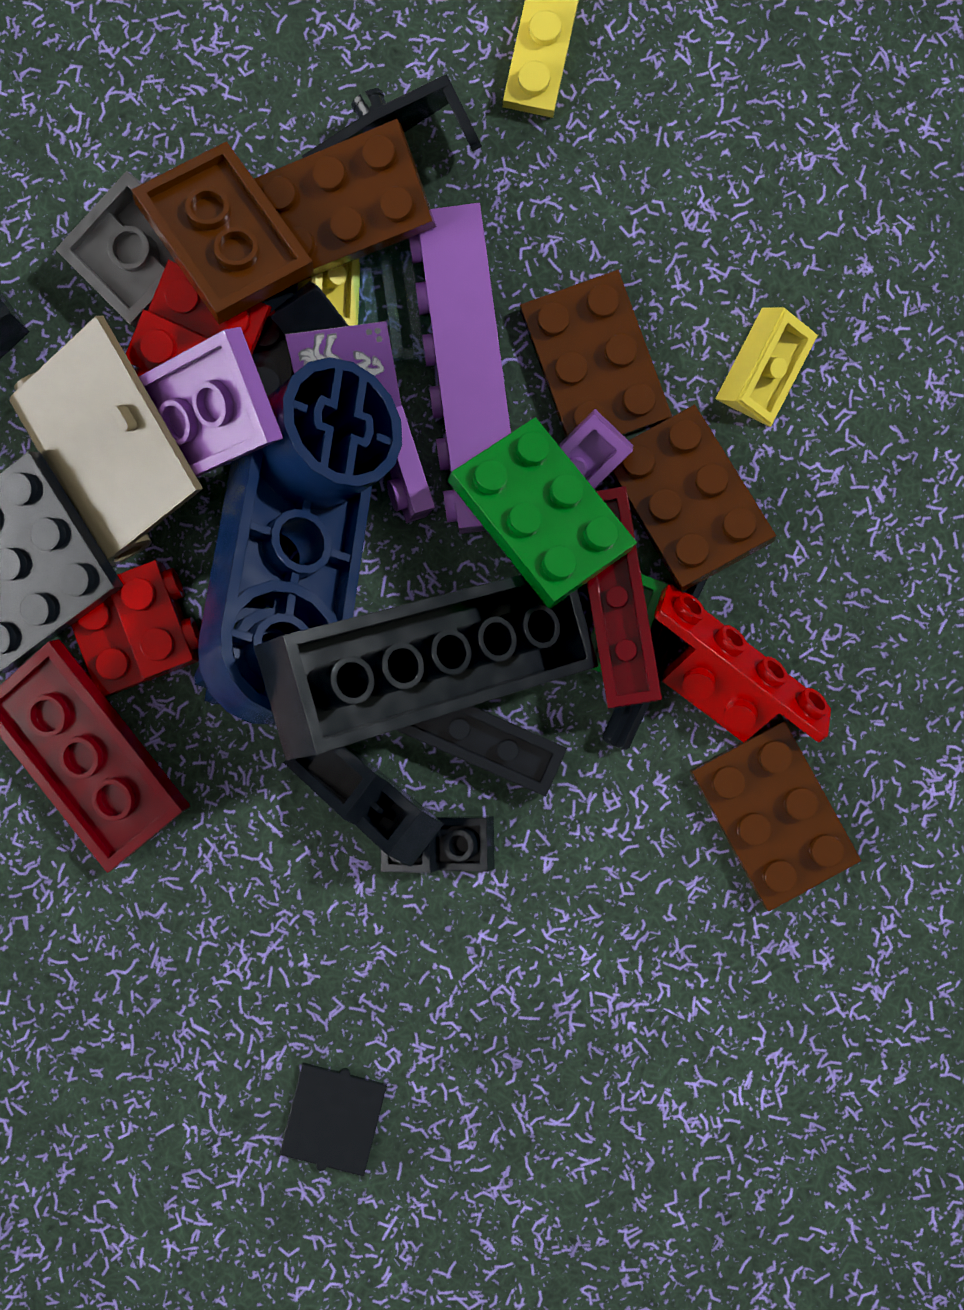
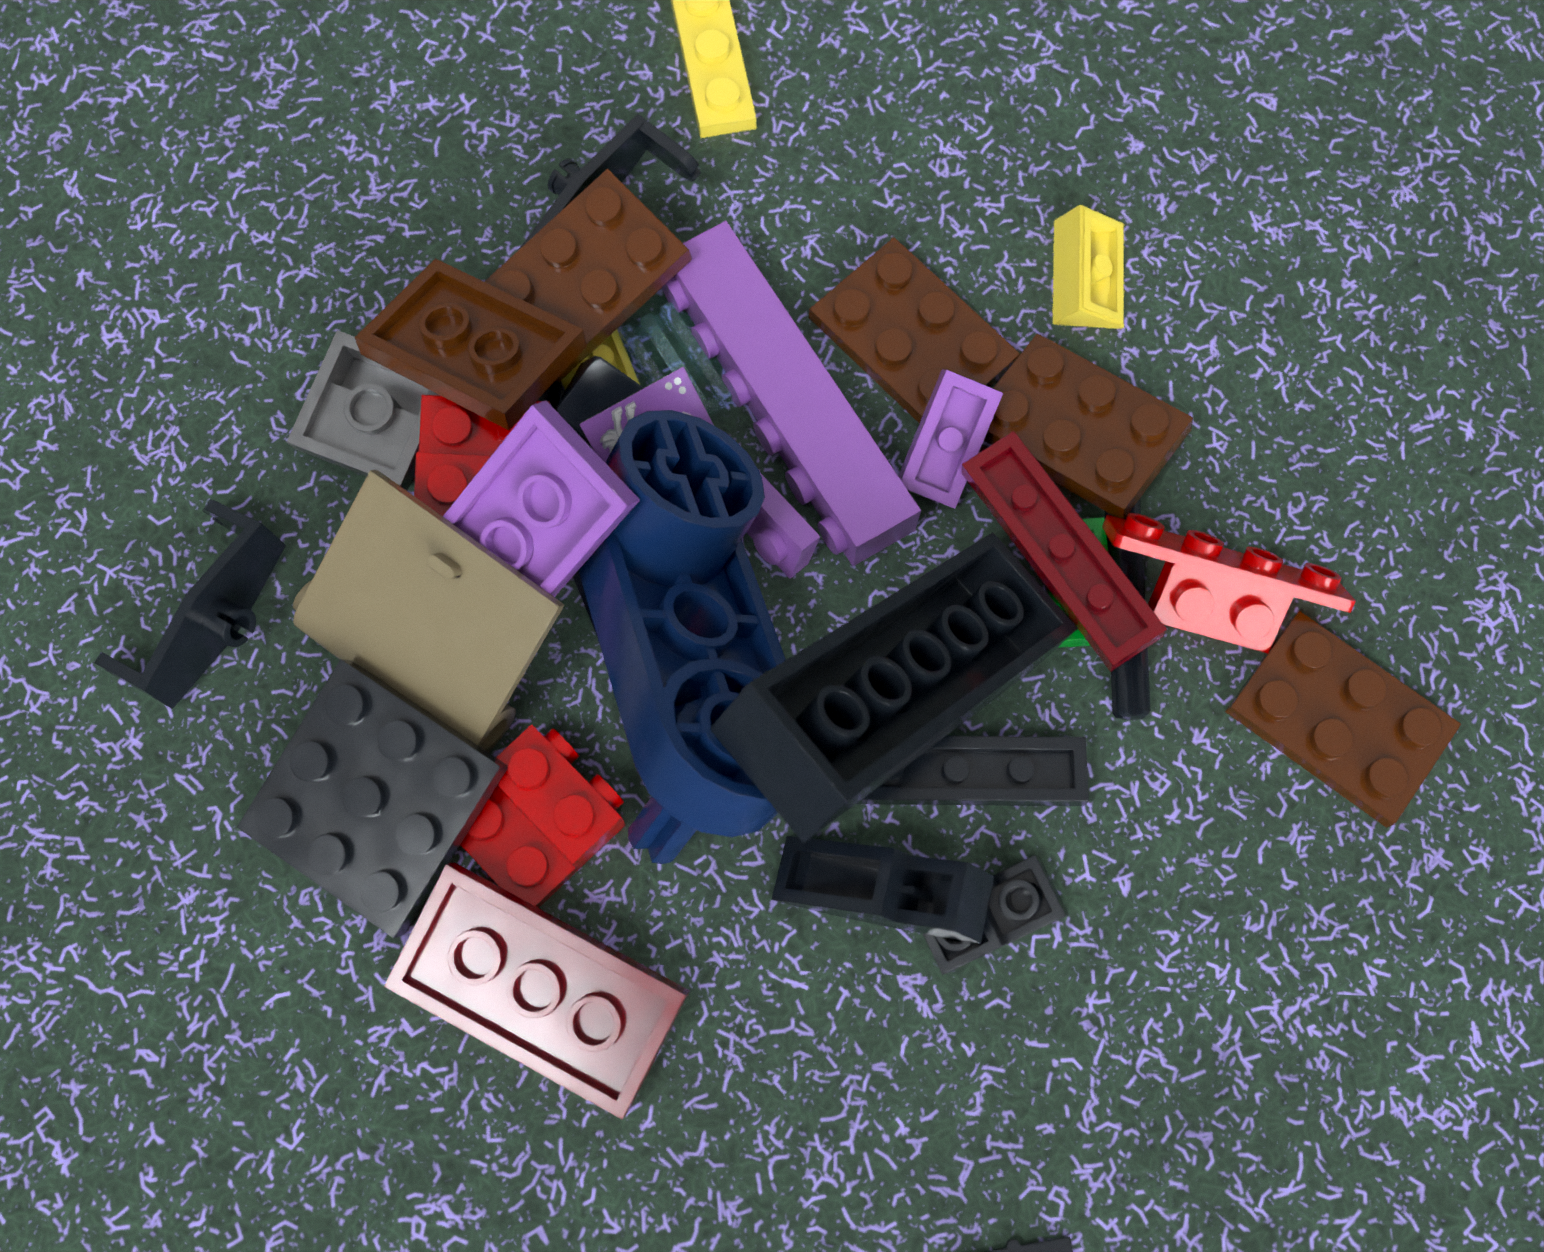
camera: 30 degrees left, 15 degrees down
(541, 512) = (942, 487): green plate -> none

